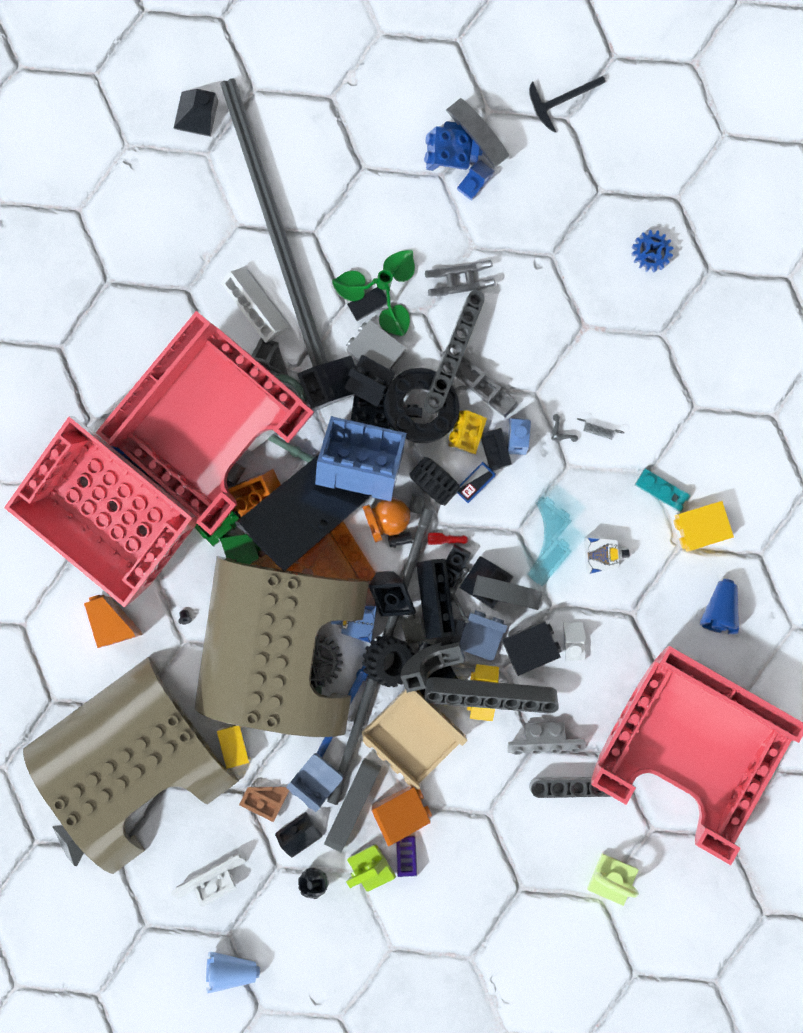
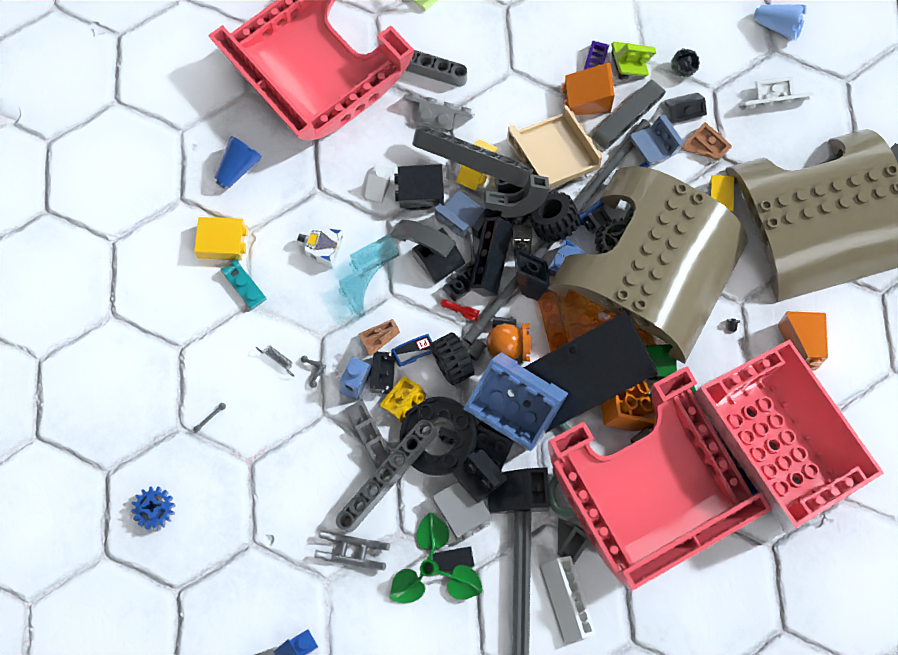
camera: 155 degrees left, 15 degrees down
(347, 675) = (594, 220): none -> black bracket
(513, 482) = (378, 336): none -> nougat wing
(631, 366) = (197, 428): none -> dark grey hinge

